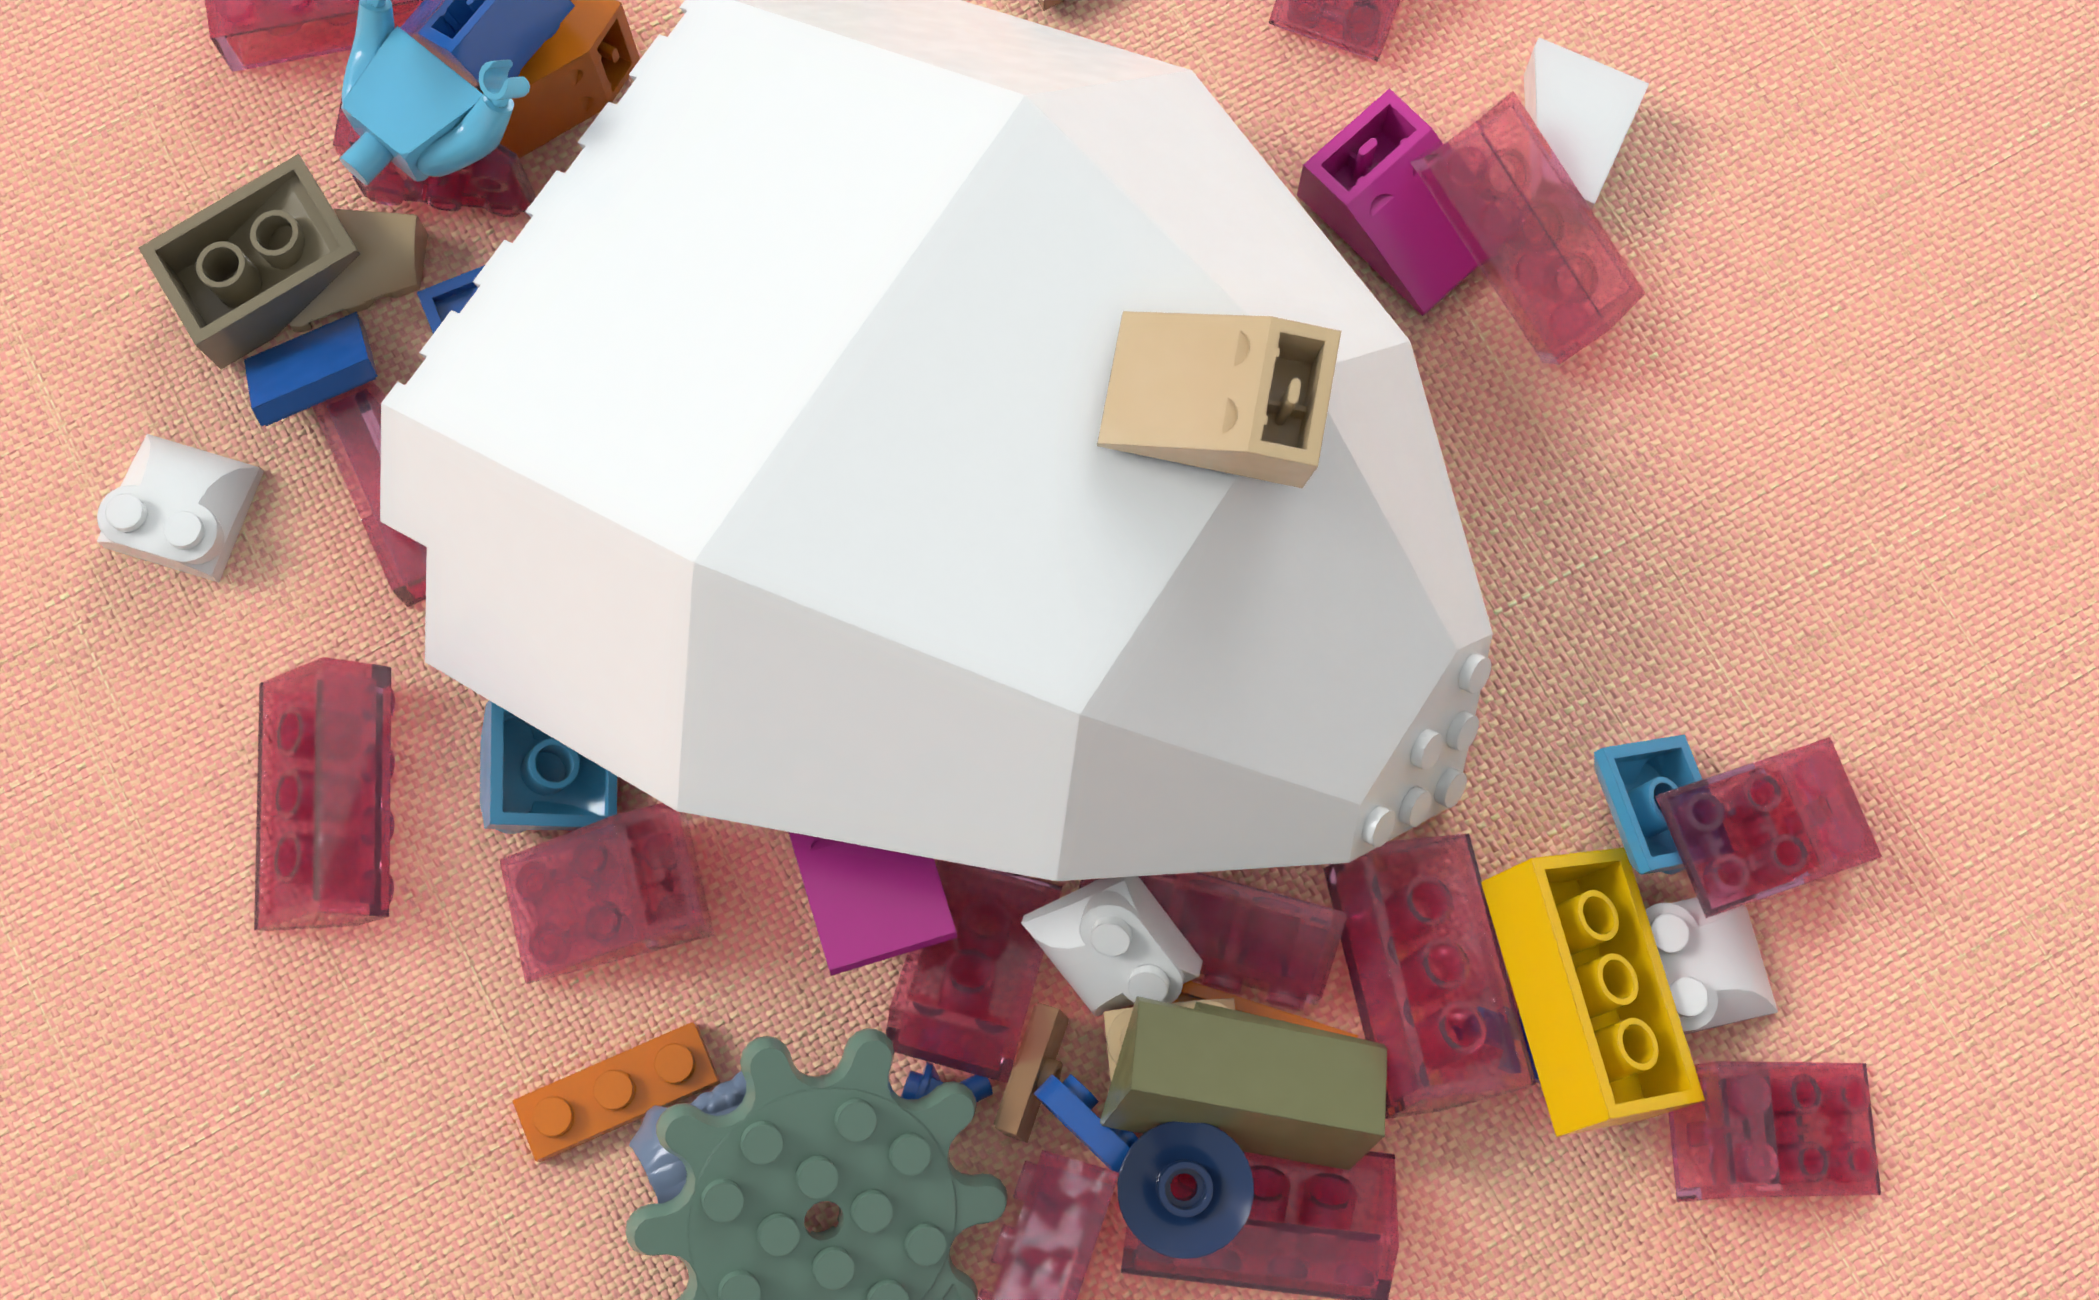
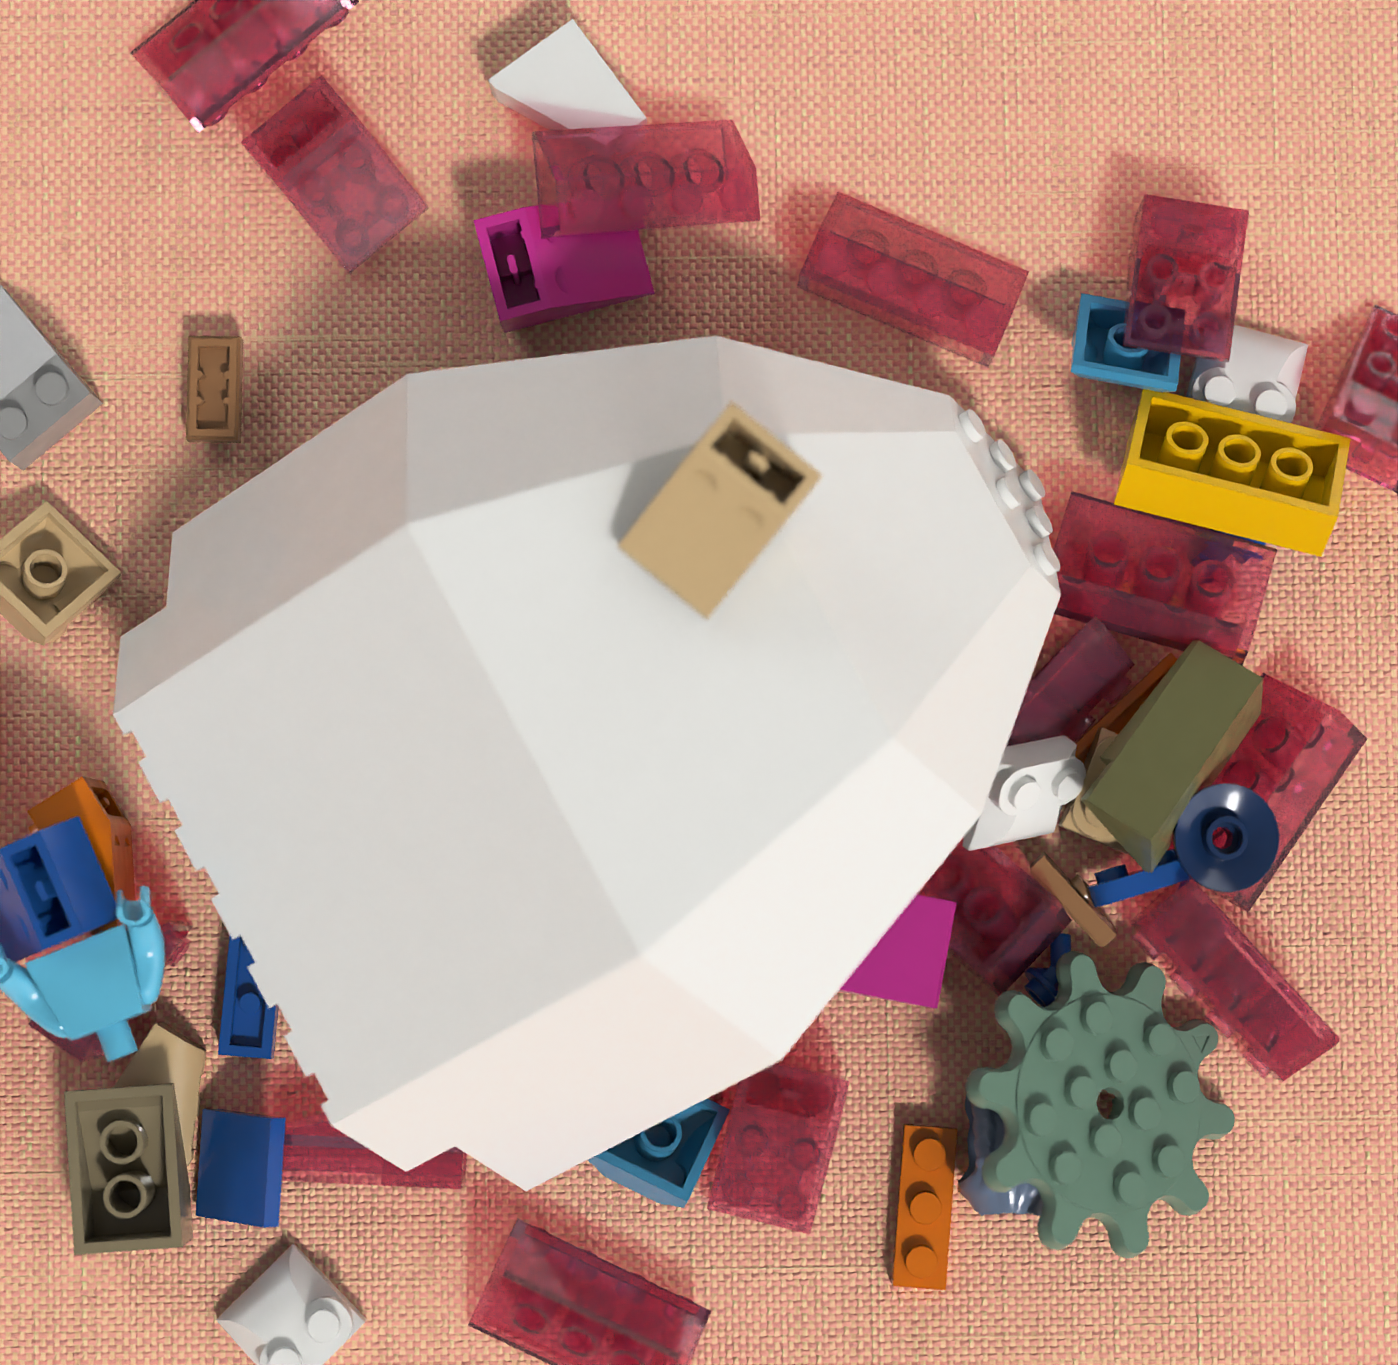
camera: 60 degrees left, 10 degrees up
(1592, 557) = (912, 279): none -> clear pink slope

